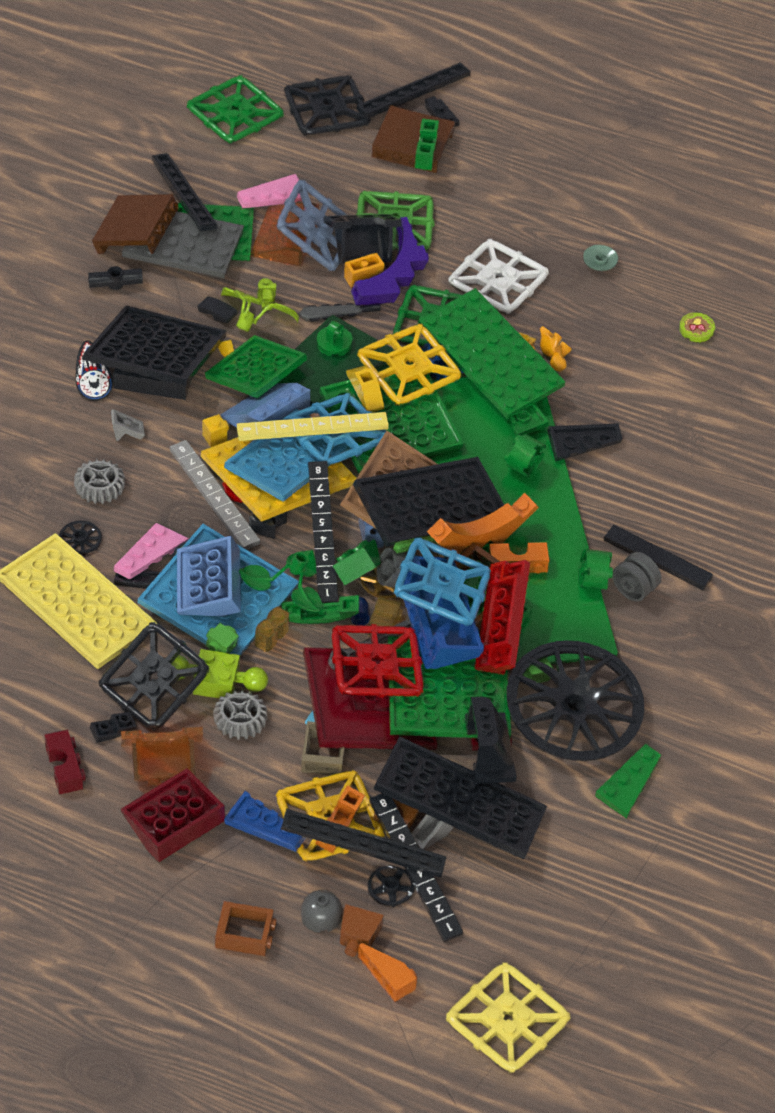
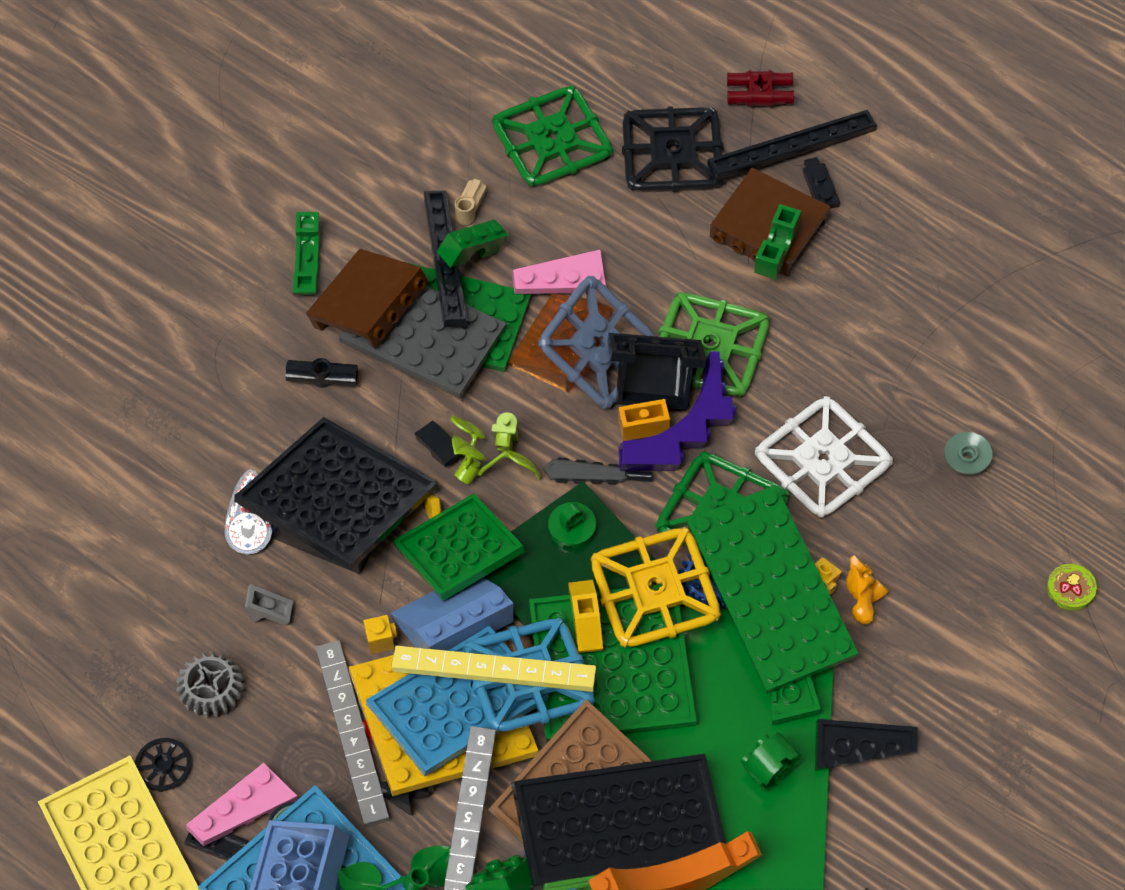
camera: 20 degrees right, 10 degrees up
(76, 205) = (307, 253): none -> green slope
(188, 157) = (469, 201): none -> tan piece
(202, 176) = (480, 238): none -> green arch
(378, 59) = (766, 81): none -> dark red pin

